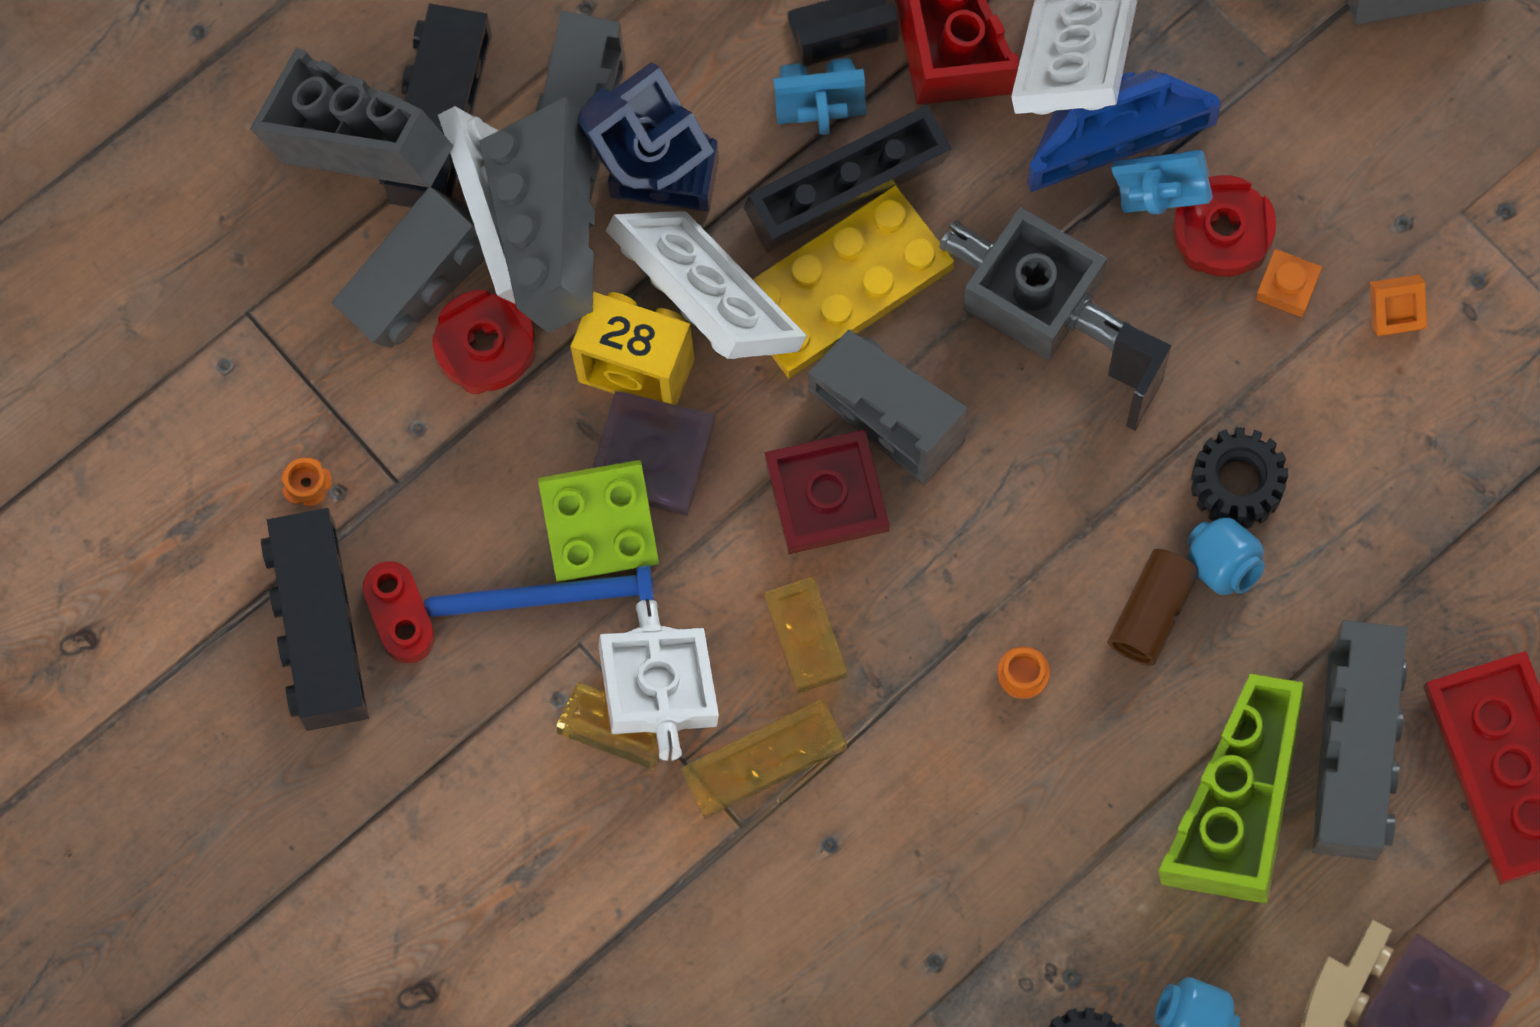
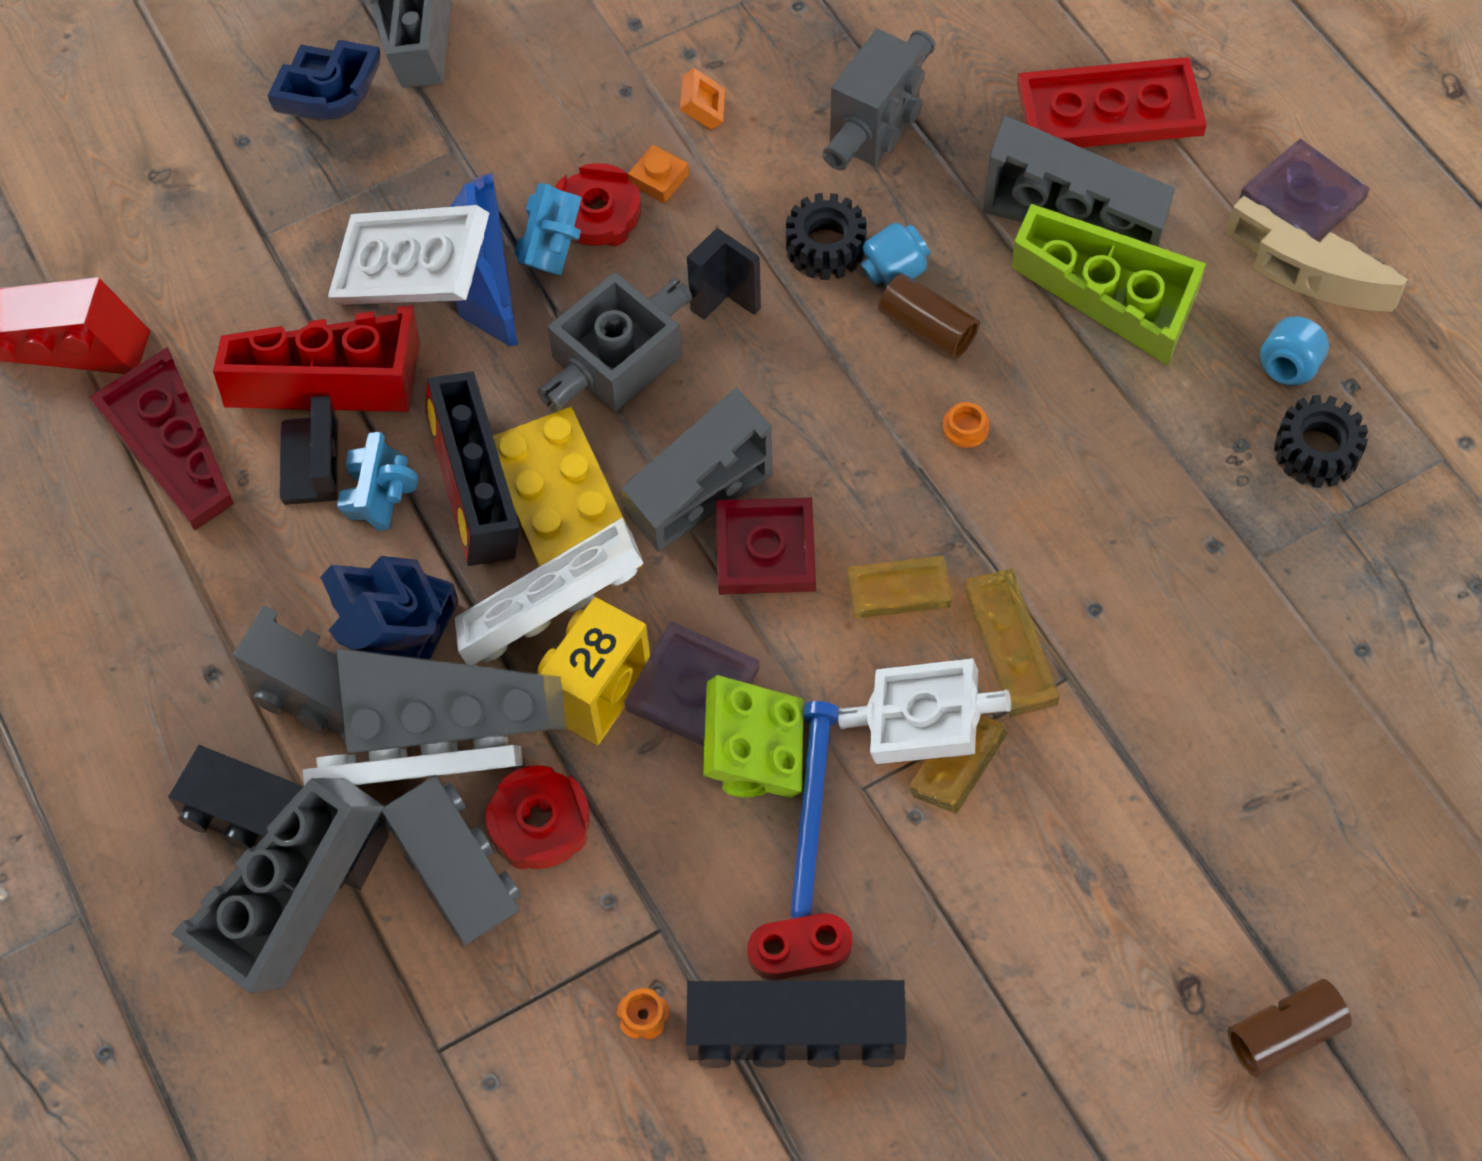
camera: 80 degrees left, 10 degrees down
(1432, 492) = (876, 97): none -> dark grey brick

